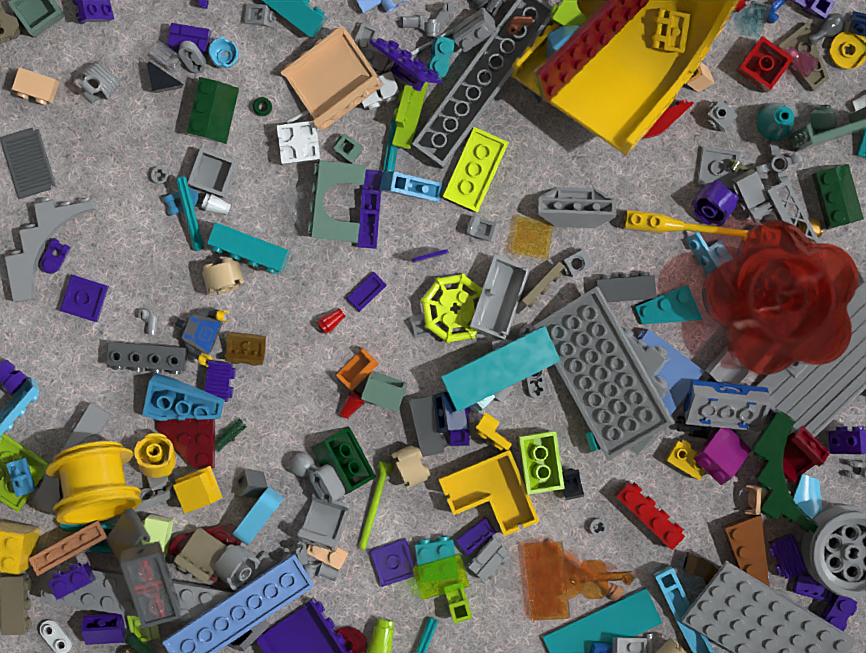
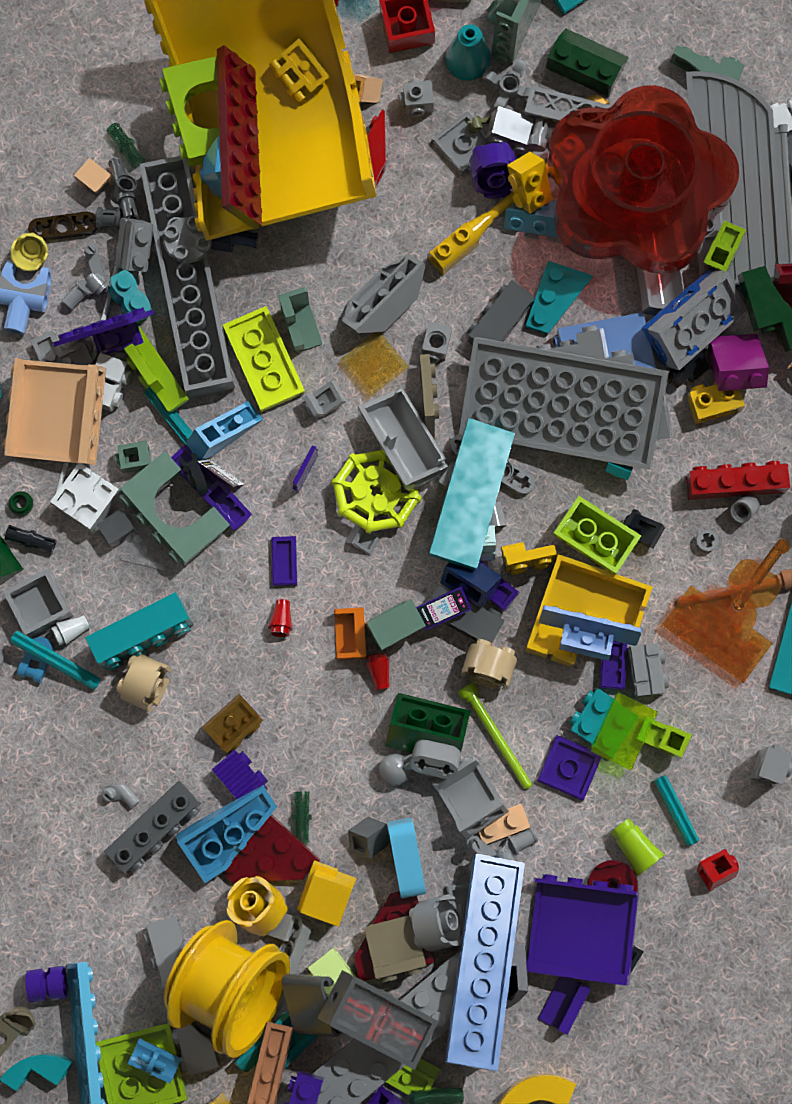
camera: 50 degrees left, 10 degrees down
(84, 298) = (40, 838): dark purple plate -> none
(201, 332) = (177, 751): torso -> none
(246, 132) = (30, 539): none -> black pin
(297, 176) = (115, 527): none -> dark grey panel
(366, 197) = (195, 475): none -> black plate
(383, 208) = (223, 474): none -> sticker
(418, 411) = (444, 607): none -> tile
(475, 509) = (588, 634): none -> medium blue bracket
(500, 60) = (184, 241): none -> light grey dish
(517, 171) = (299, 319): none -> sand green panel
(518, 22) = (164, 198): copper arm -> none
(636, 533) = (737, 512): none -> light grey beam
(724, 233) = (529, 182): none -> yellow brick
(787, 386) = (725, 246): none -> lime brick

